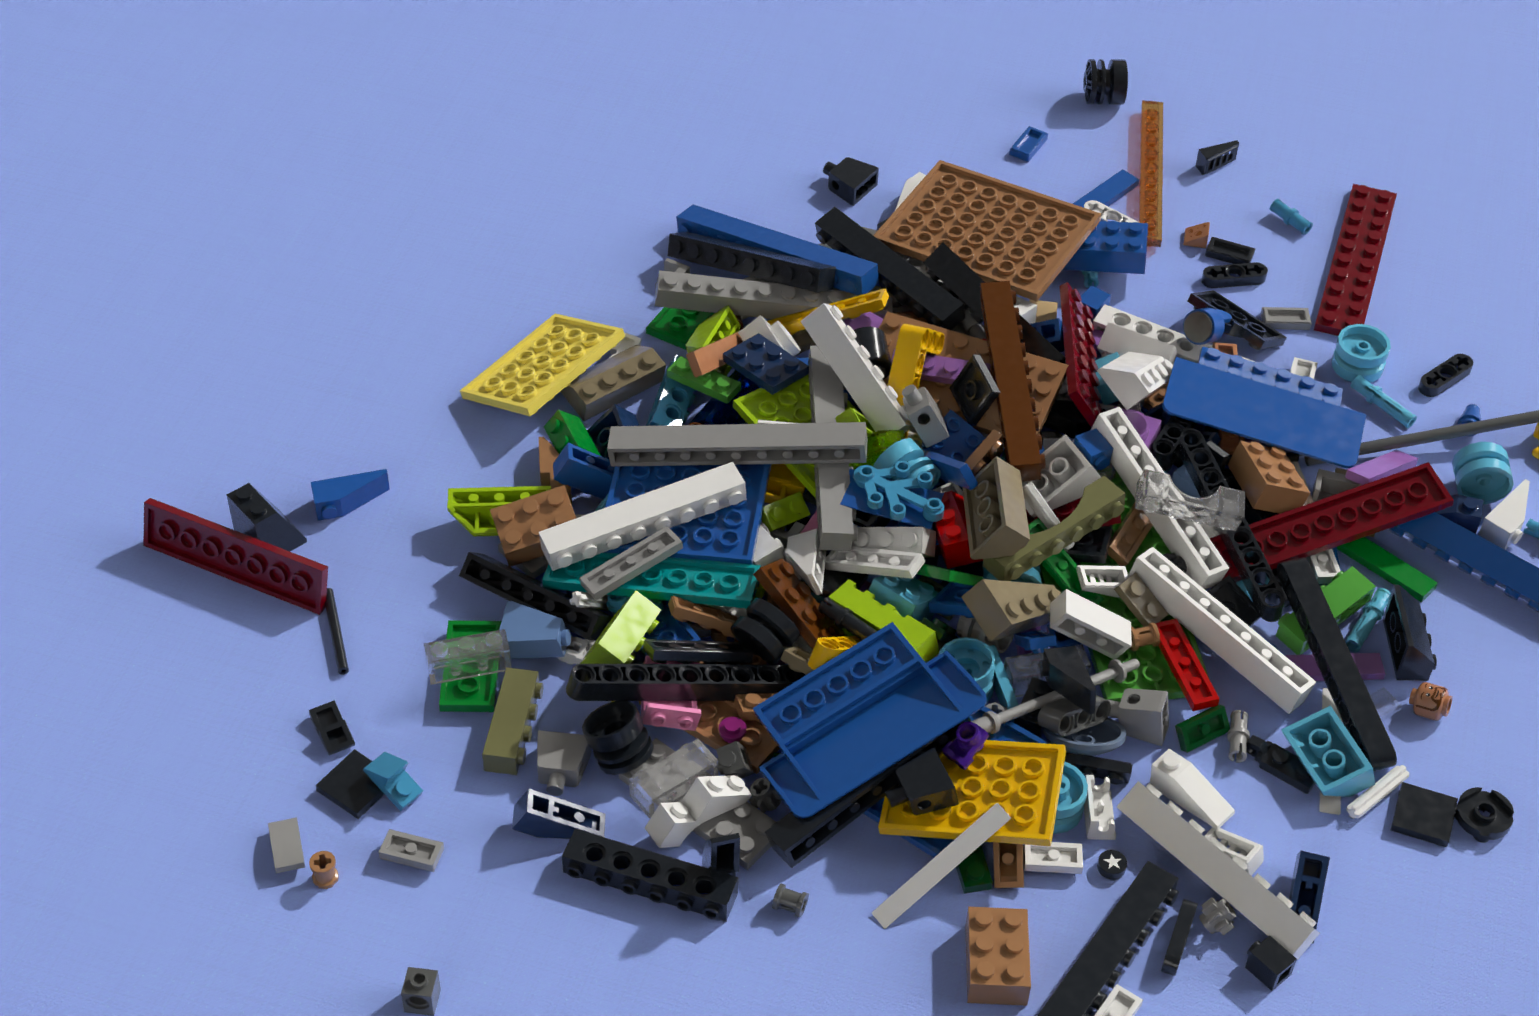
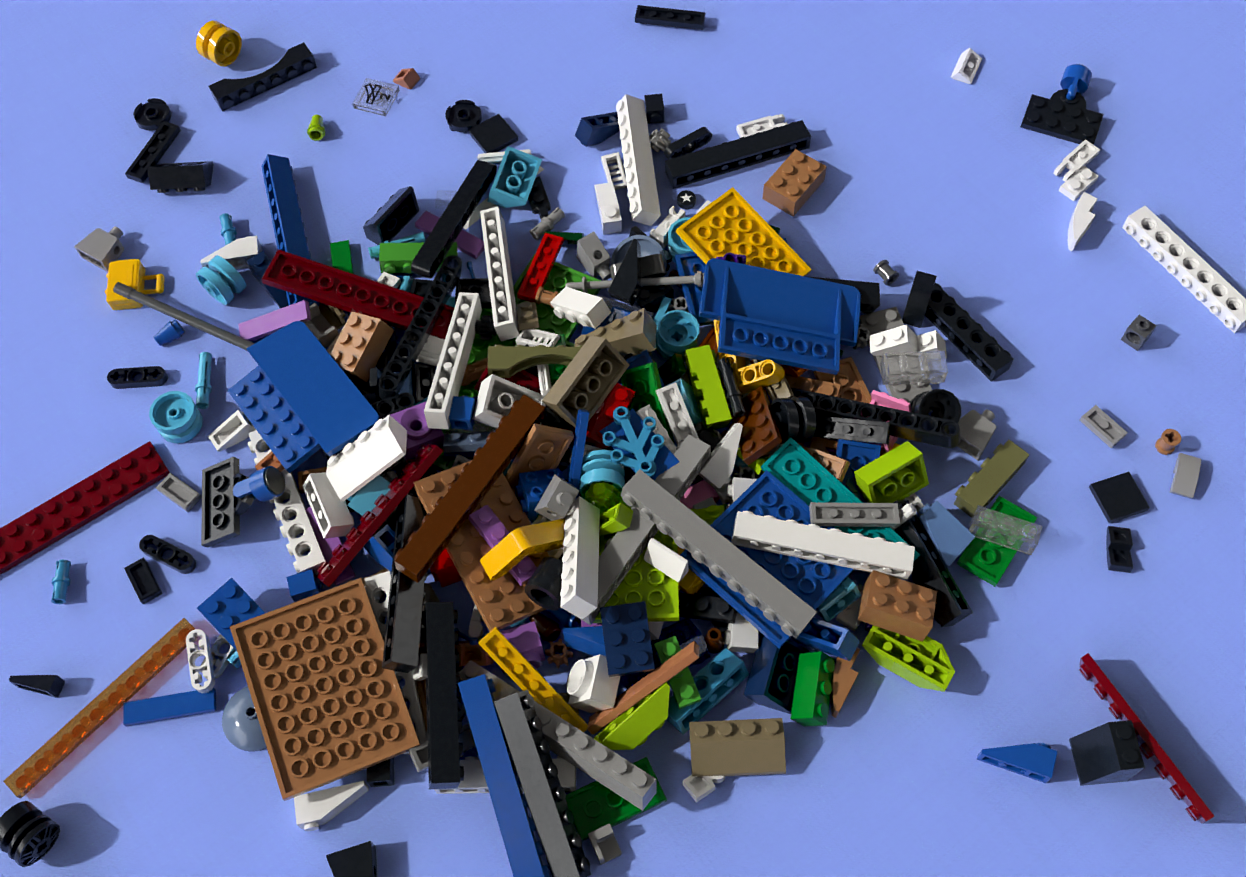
camera: 140 degrees left, 15 degrees up
(336, 633) = (1082, 633): black piece -> none
(392, 779) = (1097, 477): dark azure slope -> none
(542, 364) = (787, 795): light yellow plate -> none
(554, 817) = (1000, 394): dark blue slope -> none
(732, 729) = (852, 383): magenta plate -> none
(734, 760) = (867, 359): dark grey brick -> none
(923, 785) = (776, 257): black torso -> none
(941, 865) = (792, 228): white sticker -> none
(974, 390) = (504, 495): black tile -> none
(1028, 144) = (160, 818): blue tile -> none
(1159, 495) = (431, 315): clear arch -> none
(1197, 235) = (148, 611): nougat slope -> none
(1430, 701) = (421, 179): nougat head -> none

